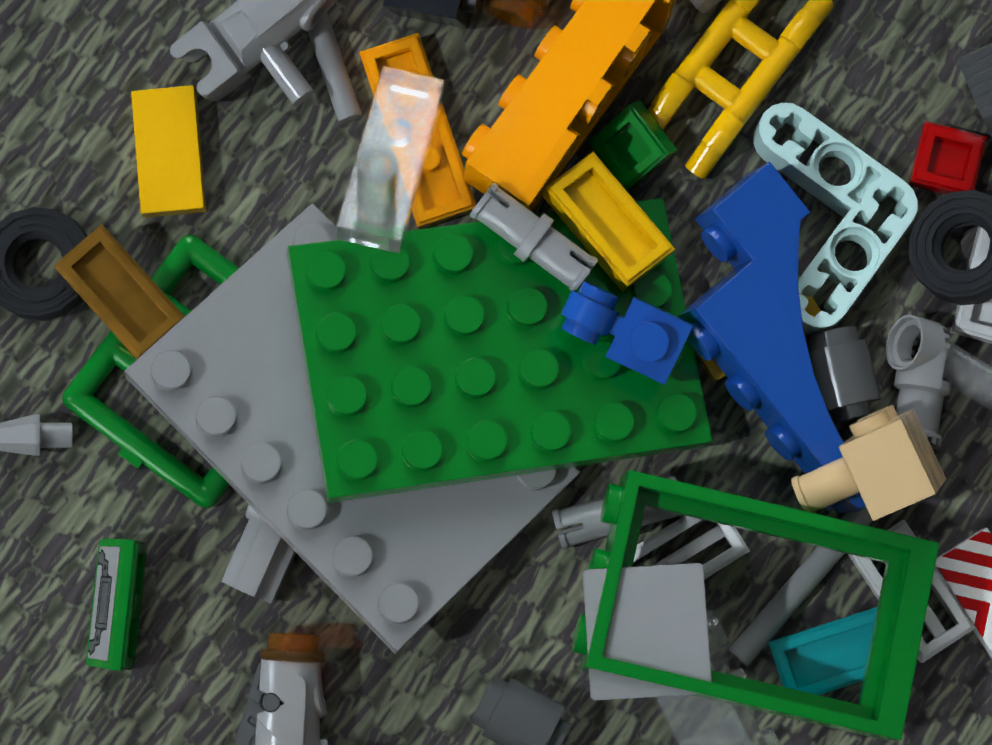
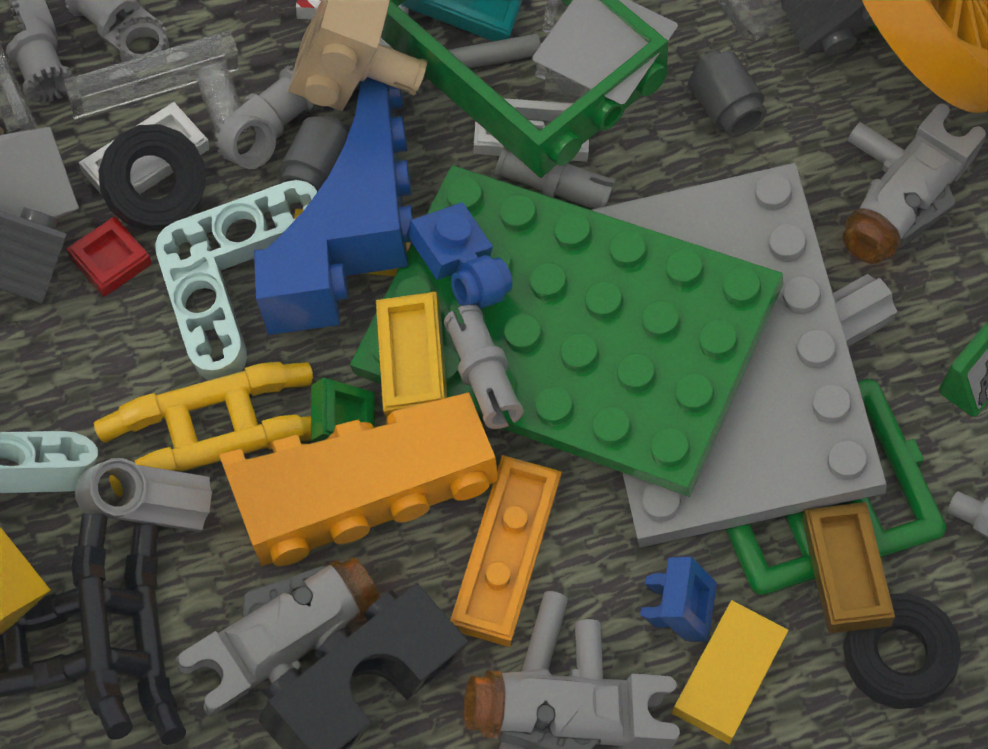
camera: 155 degrees left, 20 degrees down
(238, 178) = (685, 601): none -> blue tile
(390, 160) = (552, 509): clear piece -> none

